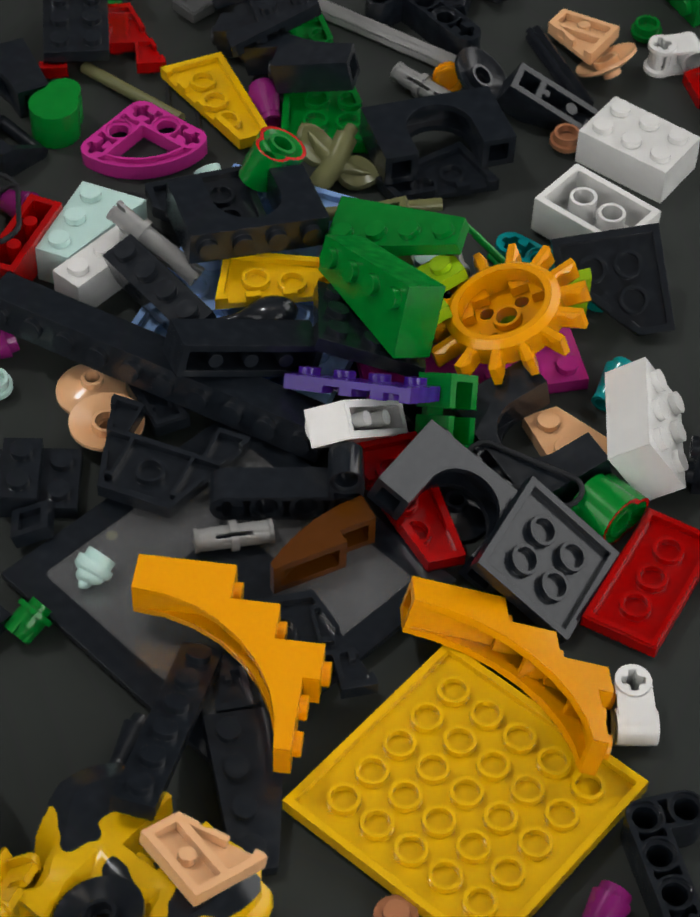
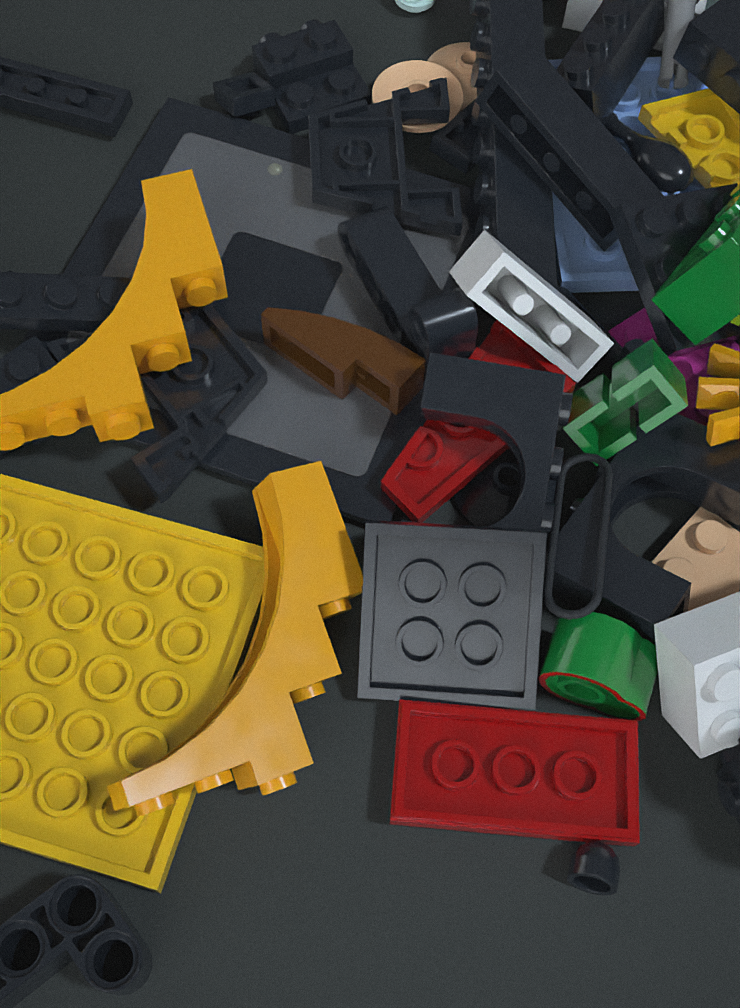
camera: 65 degrees right, 15 degrees up
(29, 620) = (113, 139): green hose -> none
(93, 568) = (204, 157): light aqua plate -> none
(261, 532) = (316, 267): light grey pin -> none
(378, 385) = (581, 295): dark purple wing -> none
(634, 713) = (261, 834): white piece -> none

